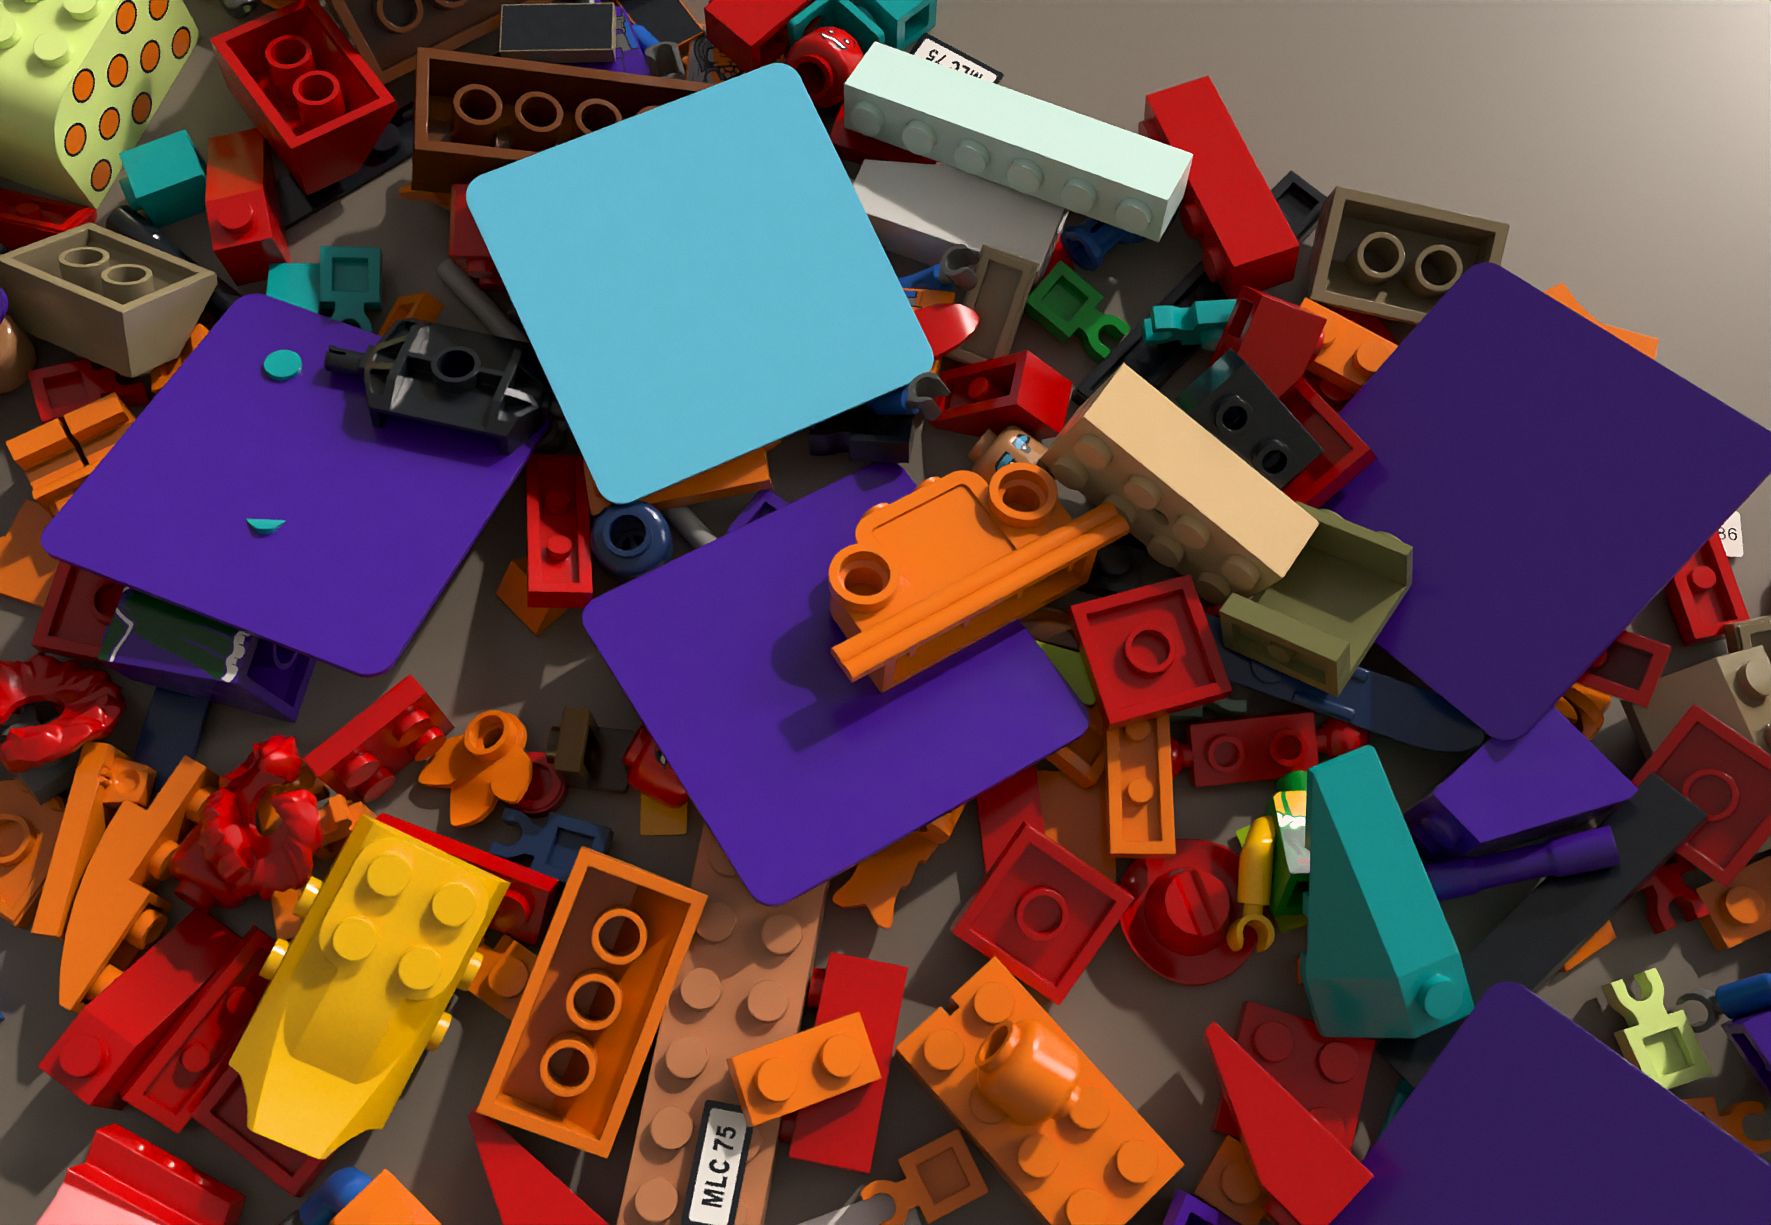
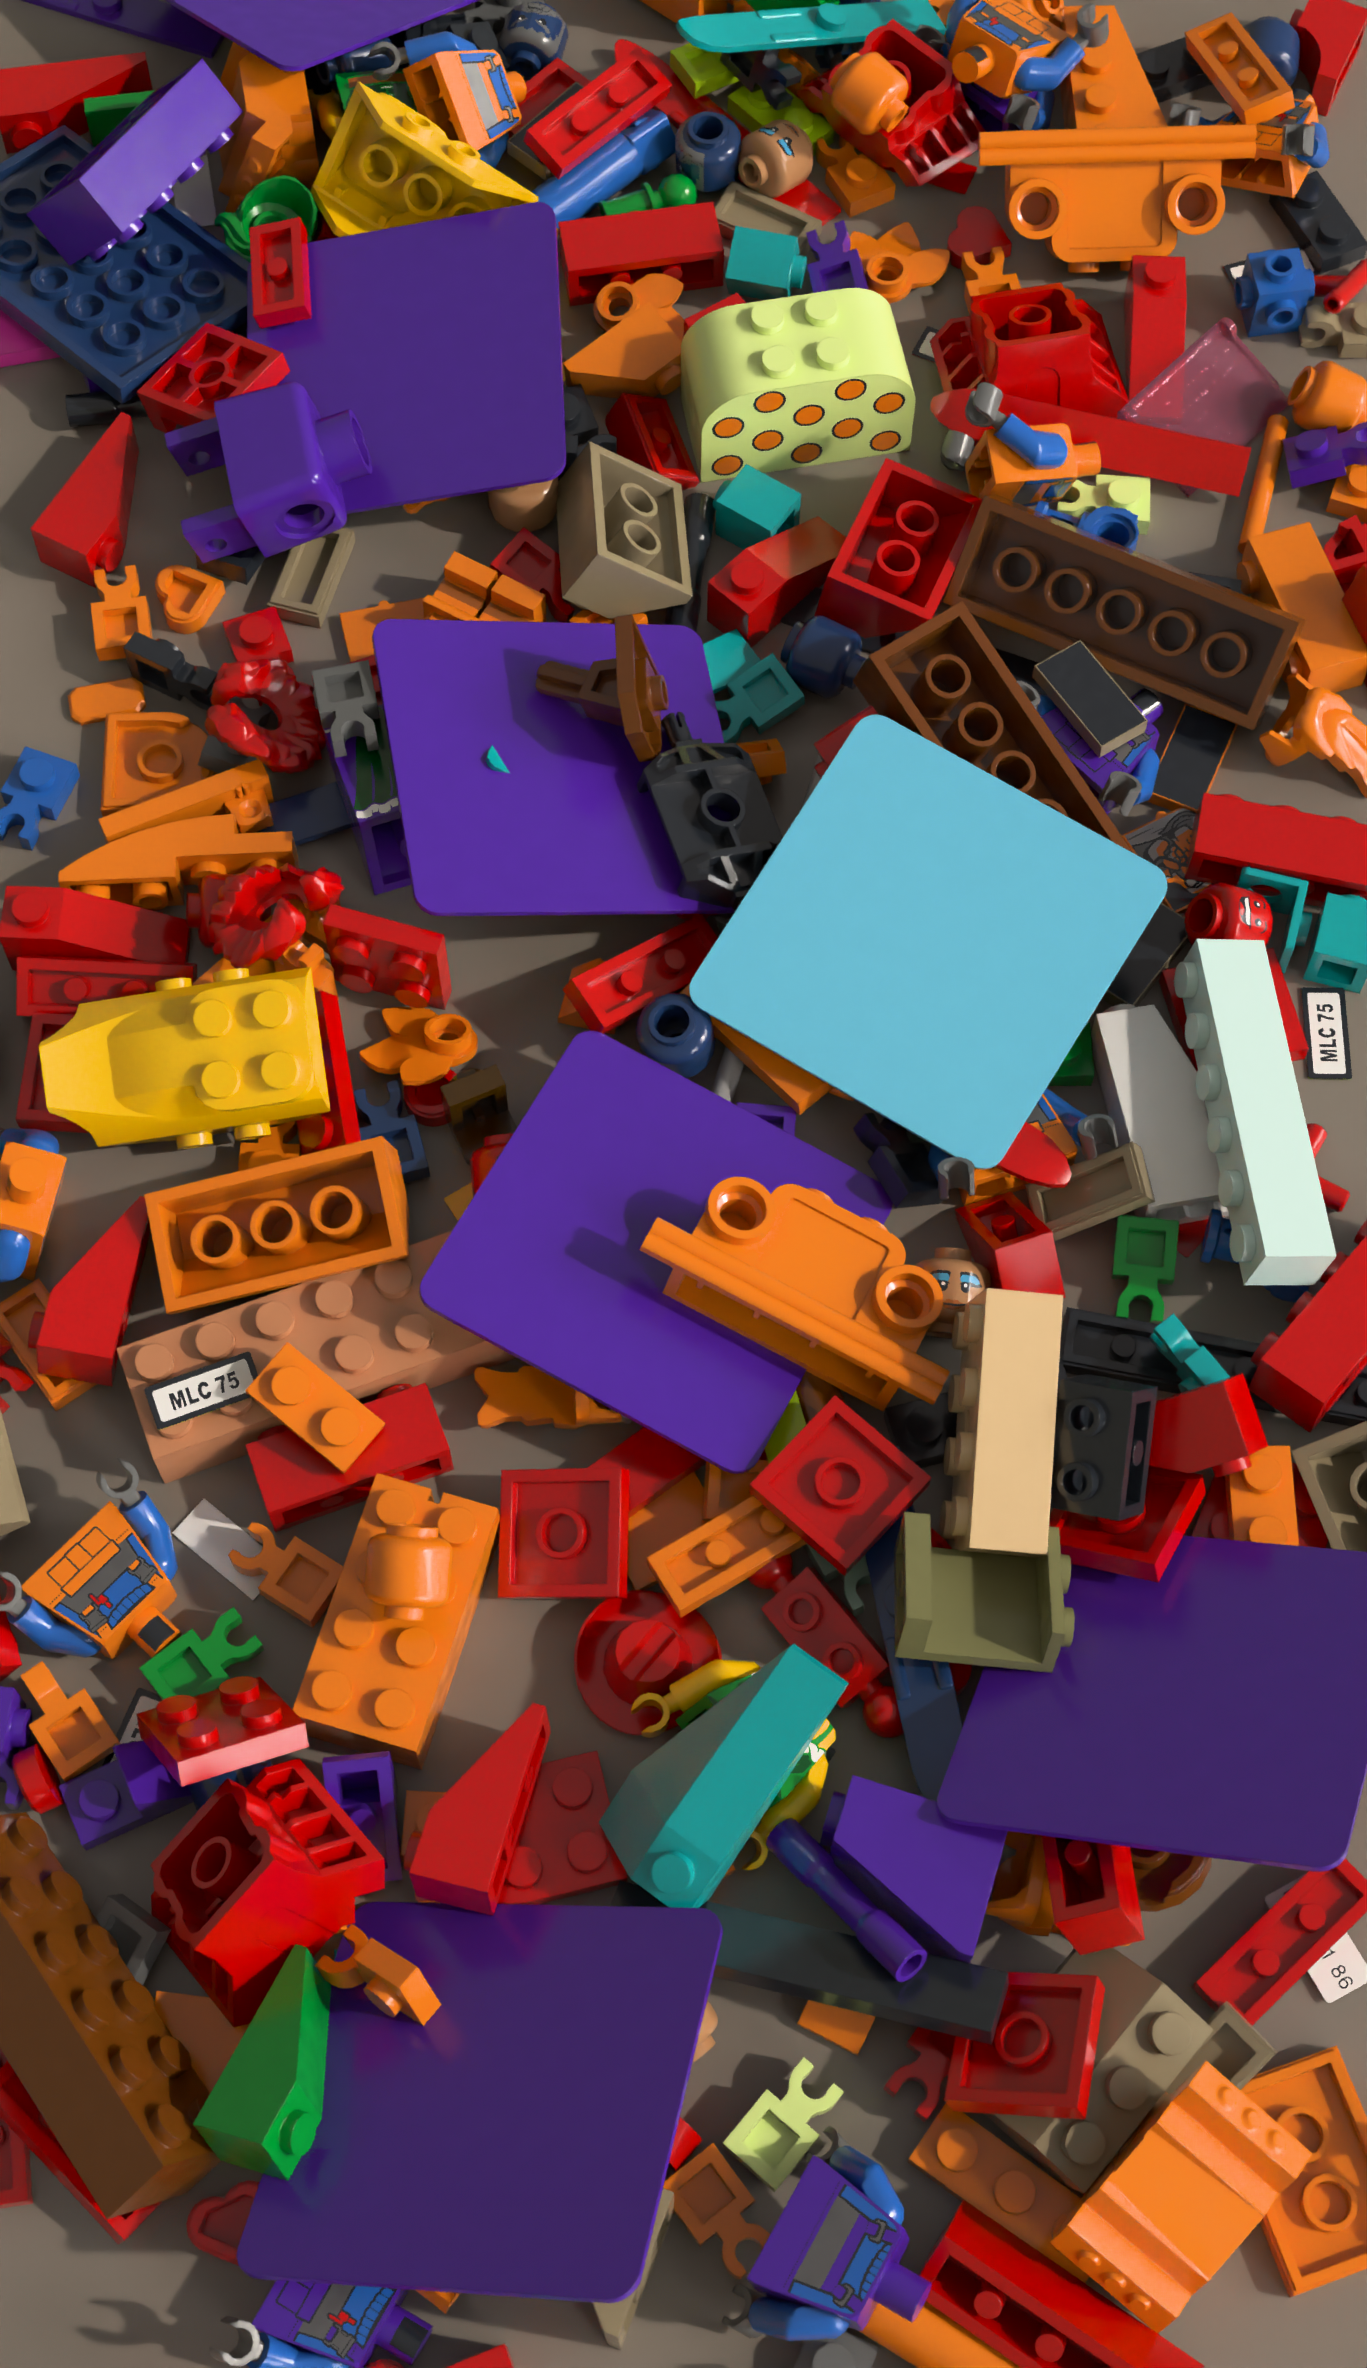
camera: 60 degrees right, 5 degrees down
(100, 619) = (347, 703): none -> dark grey plate
(273, 380) = (616, 690): none -> reddish brown piece
(354, 209) = (822, 656): none -> dark blue head

